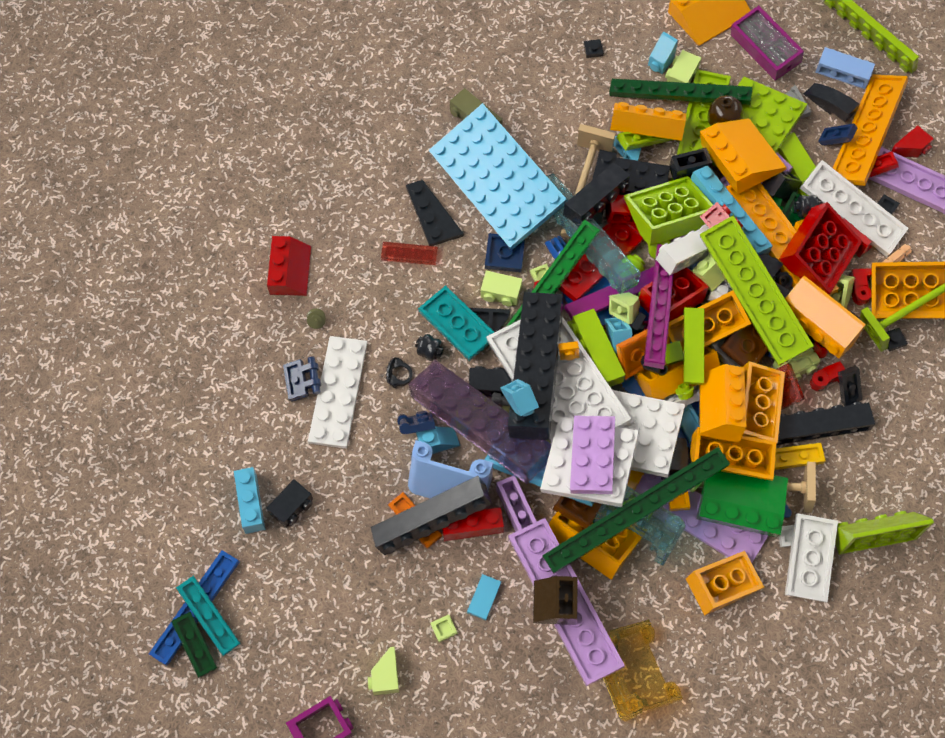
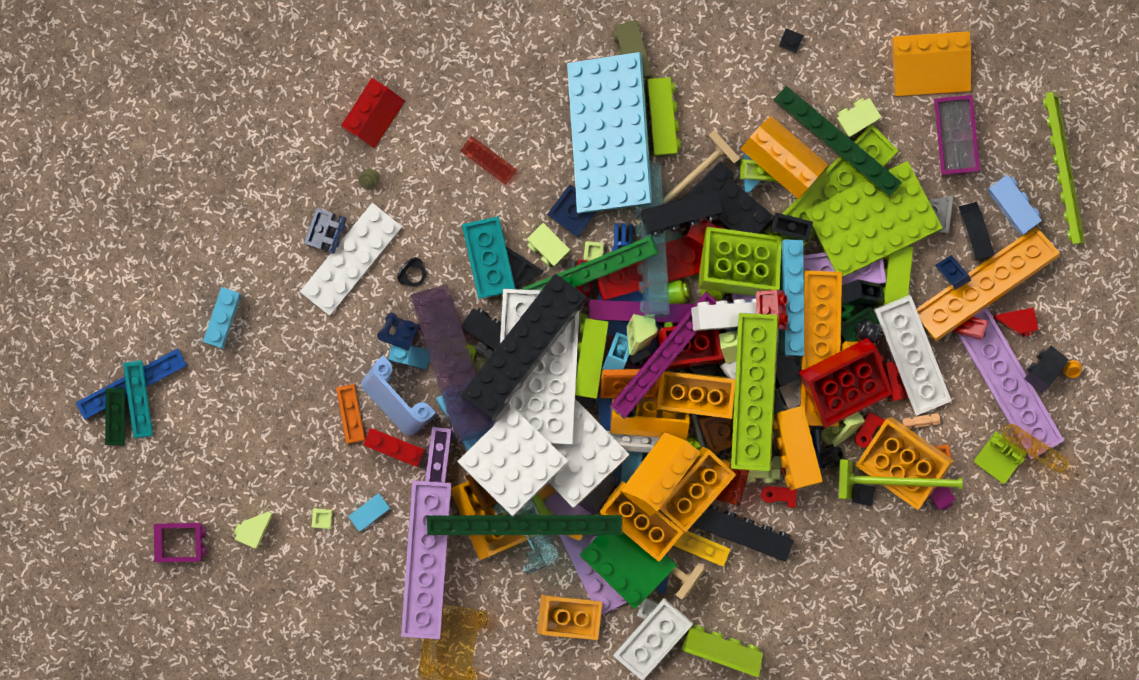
camera: 25 degrees right, 20 degrees up
(290, 504) = (255, 340): black brick -> none
(429, 347) = (451, 265): black piece -> none
(431, 515) = (361, 425): brick -> none
(433, 217) = (530, 139): black wing -> none
(520, 397) = (482, 378): medium azure slope -> none
(533, 145) = (662, 117): none -> lime brick
(555, 600) = (414, 558): dark brown slope -> none
(568, 350) = (559, 351): light orange plate -> none
(593, 455) = (515, 460): lavender plate -> none
(663, 53) = (847, 91): medium azure slope -> none
(674, 353) = (652, 401): lime tile -> none
(684, 391) = (641, 440): lime plate -> none
(693, 346) = (670, 408): lime tile -> none
(725, 109) = (858, 195): dark brown cylinder -> none
(741, 153) = (841, 248): light orange slope -> none
(788, 280) = (793, 391): black plate -> none
(850, 385) = (789, 516): black plate -> none
(888, 204) = (949, 367): black plate -> none

